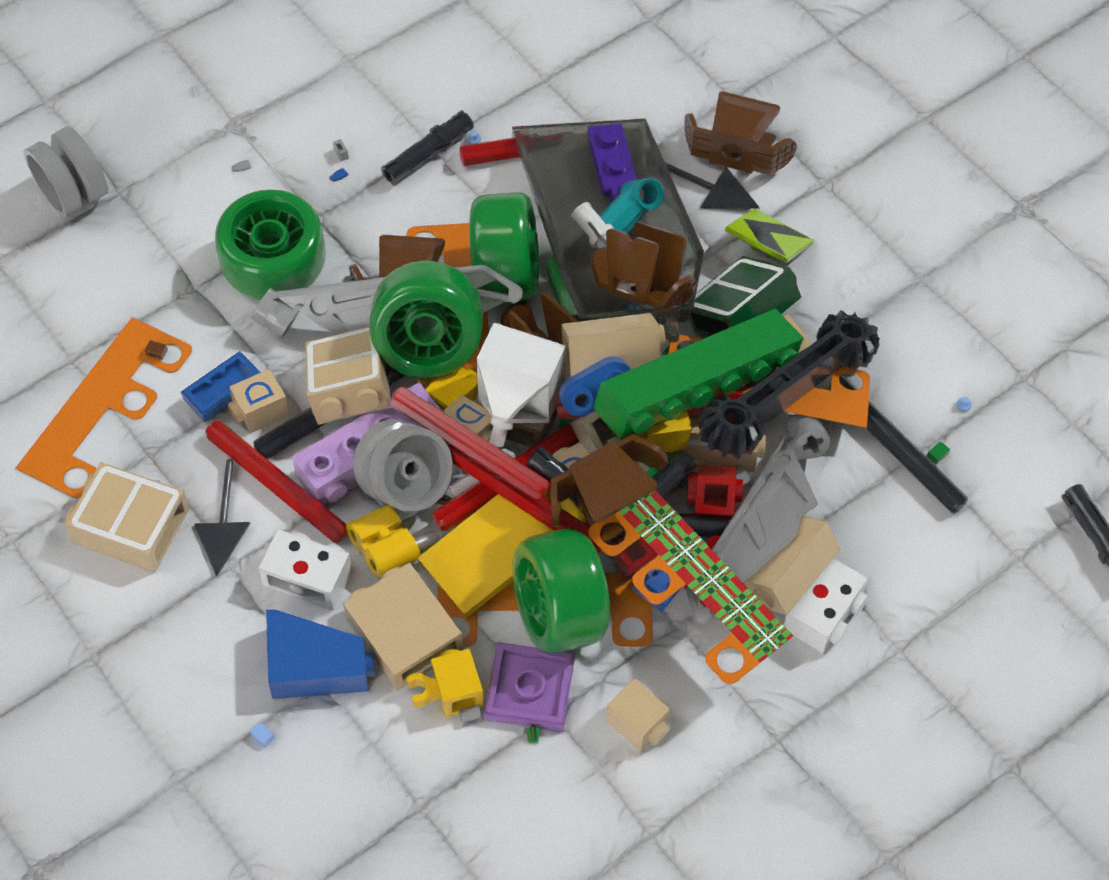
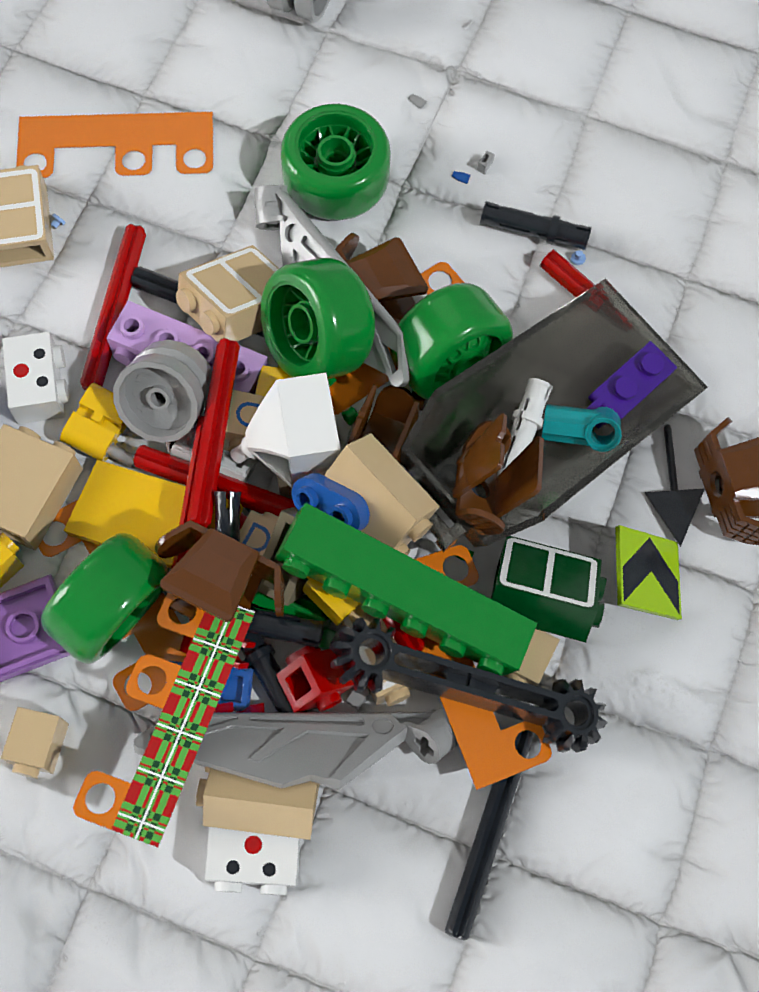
camera: 55 degrees right, 10 degrees up
(156, 349) = (188, 145): reddish brown piece -> none
(212, 391) = (180, 212): blue plate -> none
(222, 537) = (40, 298): black piece -> none
(258, 401) = (178, 245): tan brick -> none
(938, 452) = (508, 878): green piece -> none
(964, 404) = (585, 875): light blue piece -> none

